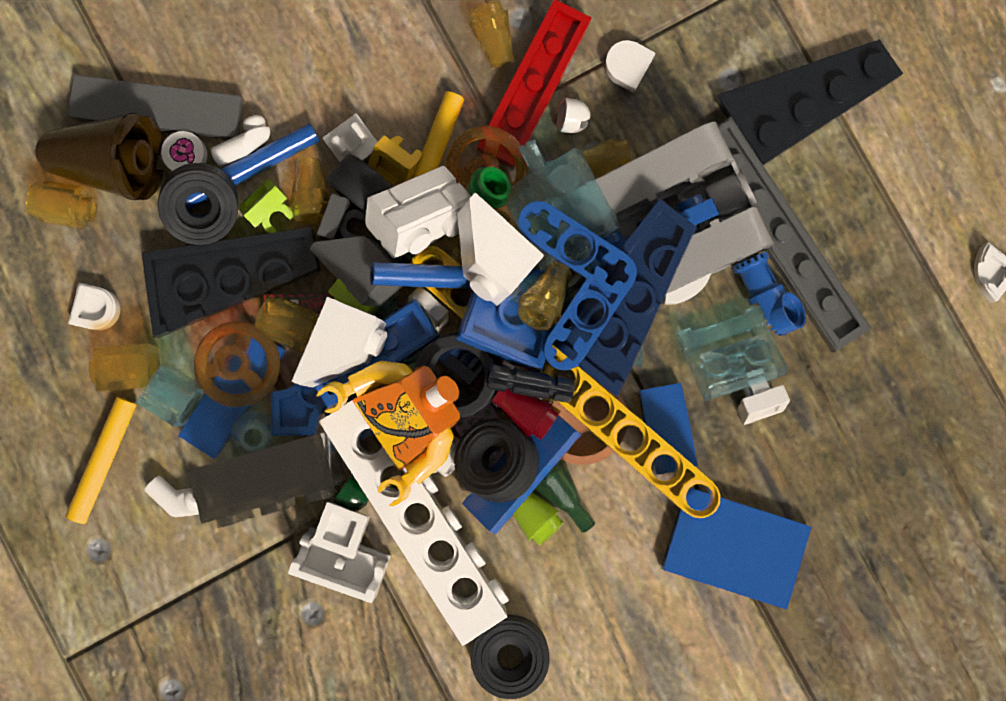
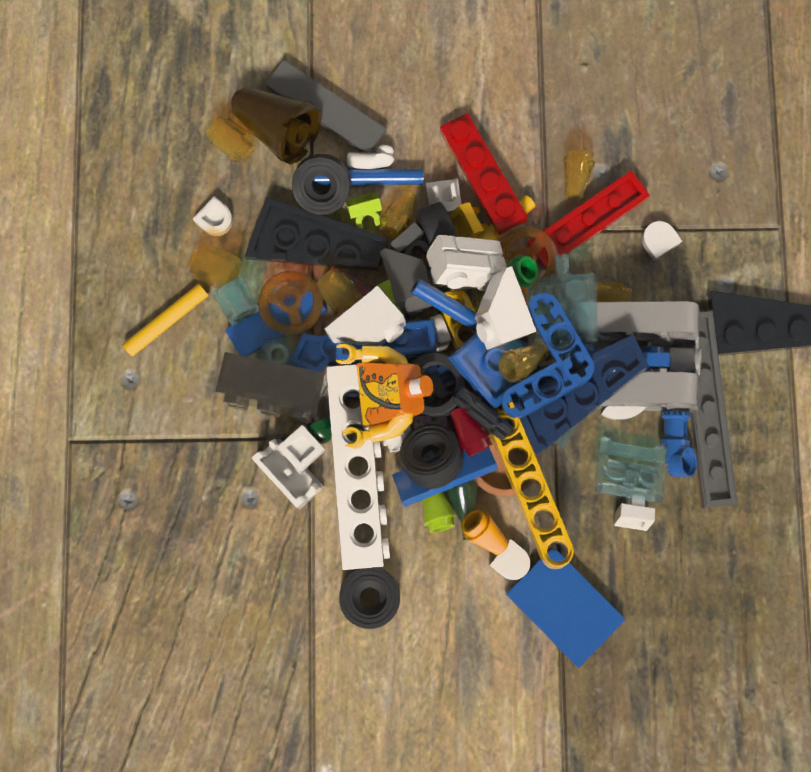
camera: 30 degrees right, 5 degrees down
(174, 502) = (199, 373): white arm -> none
(183, 149) = (329, 143): white tile -> none
(383, 92) = (483, 174): none -> red plate
(572, 116) = (603, 254): white hinge -> none
(601, 514) = (484, 532): none -> light orange cone
(649, 528) = (512, 563): none -> white tile
(667, 415) = (565, 489): blue tile -> none

